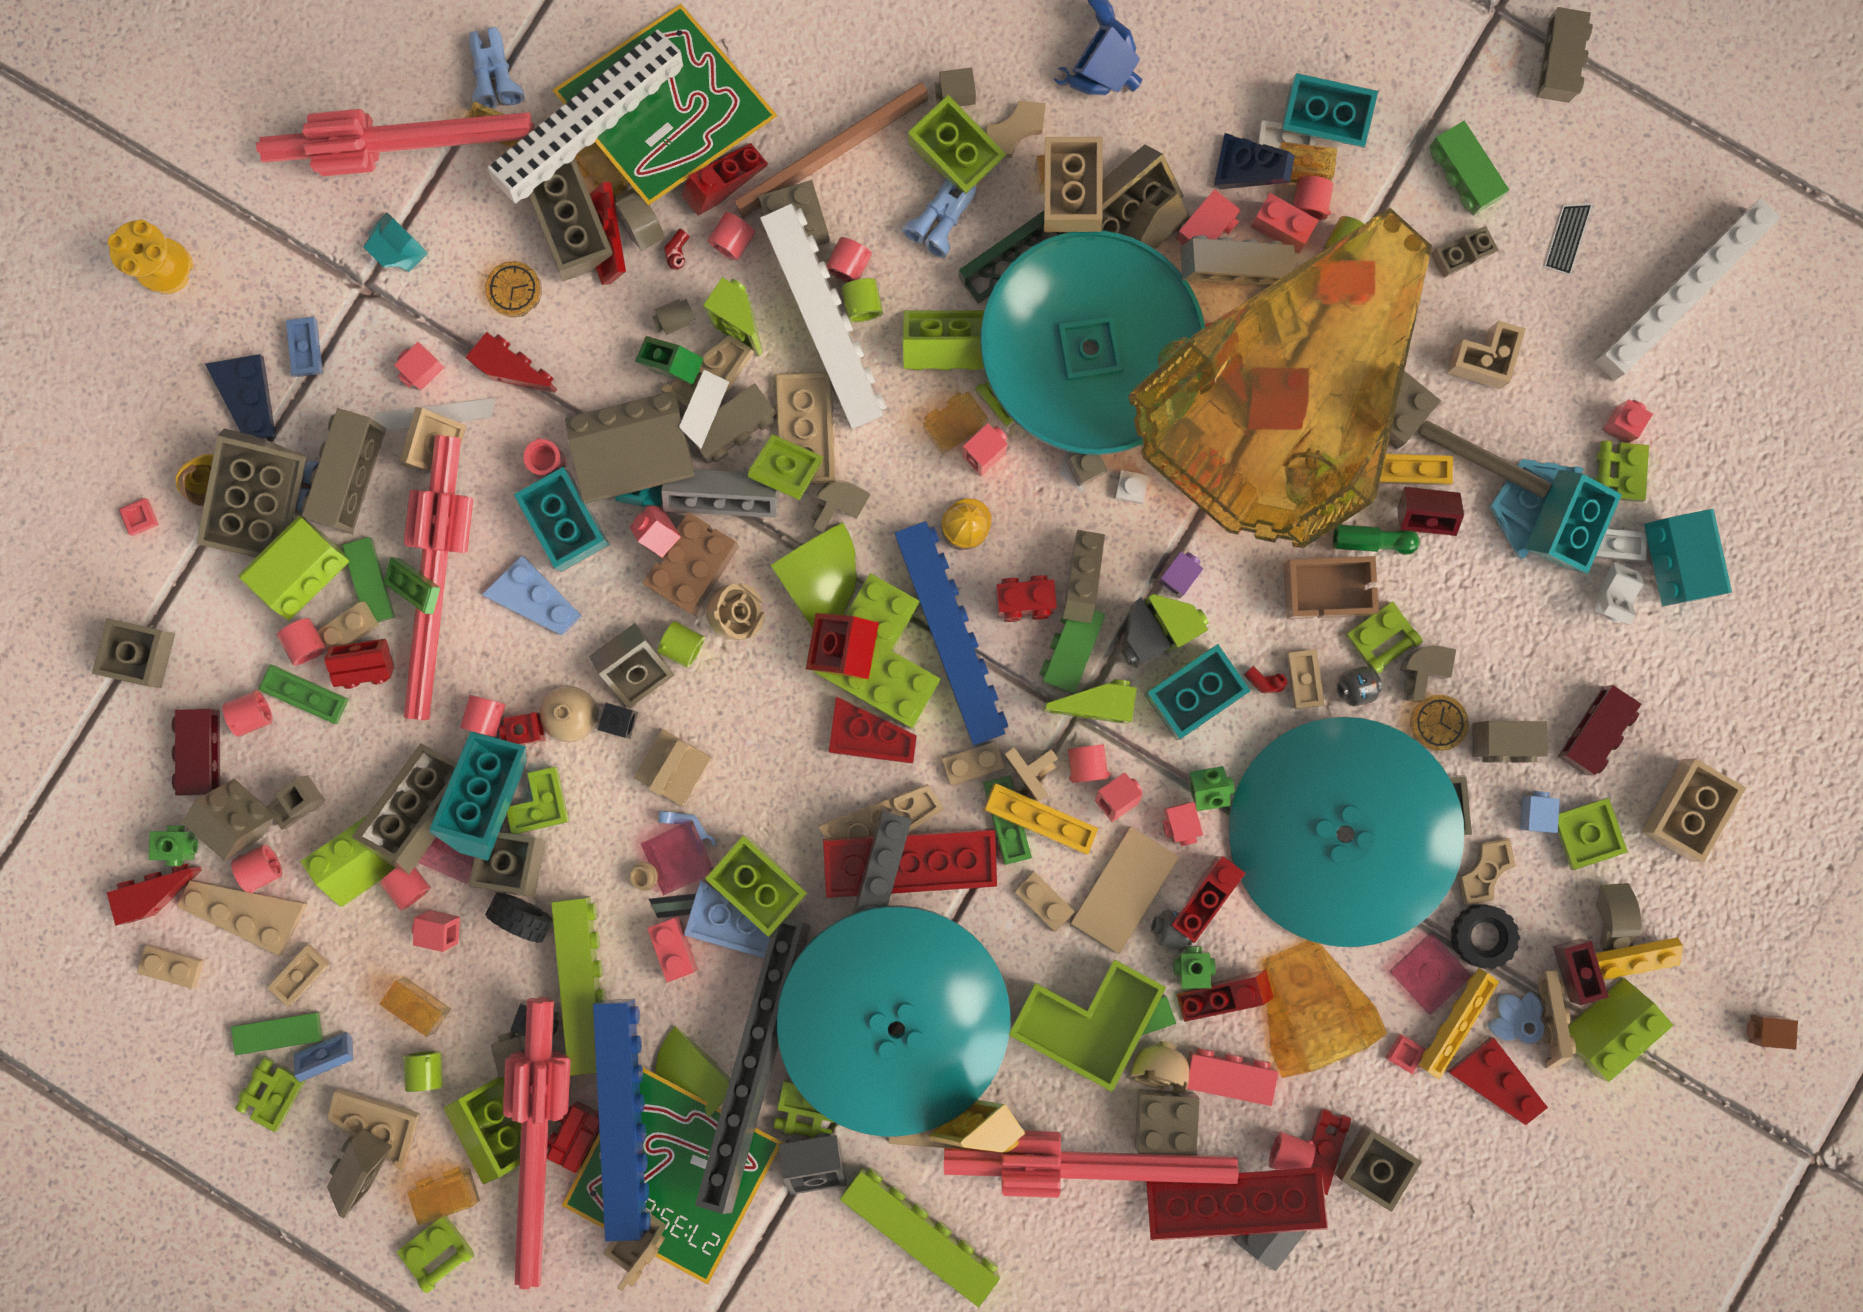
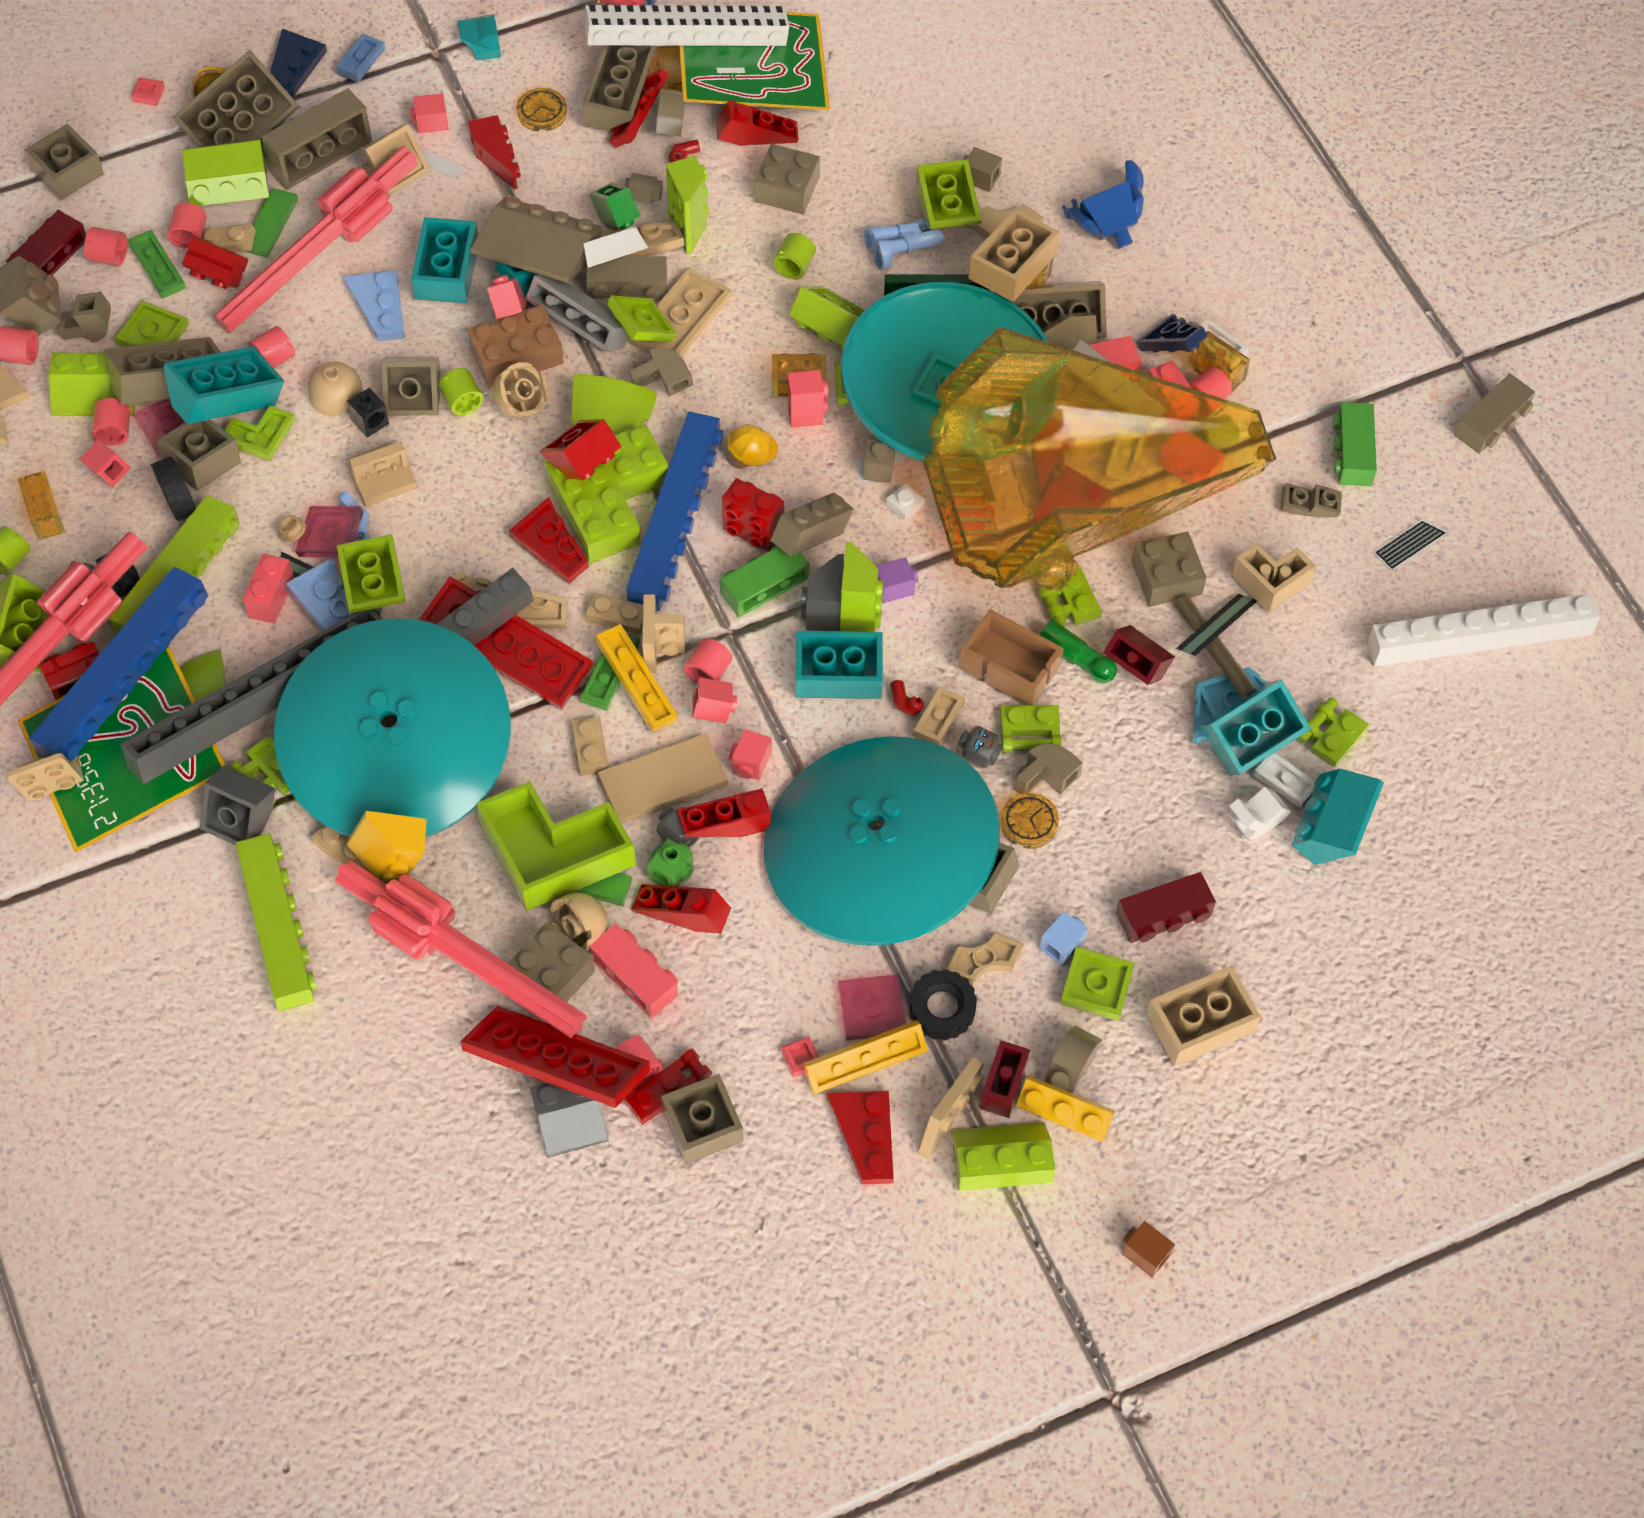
camera: 30 degrees right, 25 degrees down
(358, 765) = (151, 325): none -> lime tile
(412, 585) = (298, 231): bright green tile -> none
(532, 726) = (295, 377): red brick -> none
(543, 458) = (468, 209): coral piece -> none
(731, 236) = (730, 162): coral piece -> none
(822, 315) = (753, 243): white brick -> none
(834, 147) = (860, 154): nougat tile -> none
(848, 260) = (807, 222): coral piece -> none
(1106, 702) = (748, 618): lime slope -> none
(1211, 788) = (794, 741): bright green brick -> none
(1316, 1011) = (750, 969): clear yellow wedge -> none
(1329, 110) = (1267, 336): teal slope -> none
(1417, 469) = (1148, 620): yellow plate -> none
(1473, 437) = (1216, 624): none -> sticker
(1513, 739) = (1077, 856): dark tan brick -> none
(1515, 1015) = (921, 1090): light blue plate -> none
(1628, 421) = (1361, 692): coral brick -> none

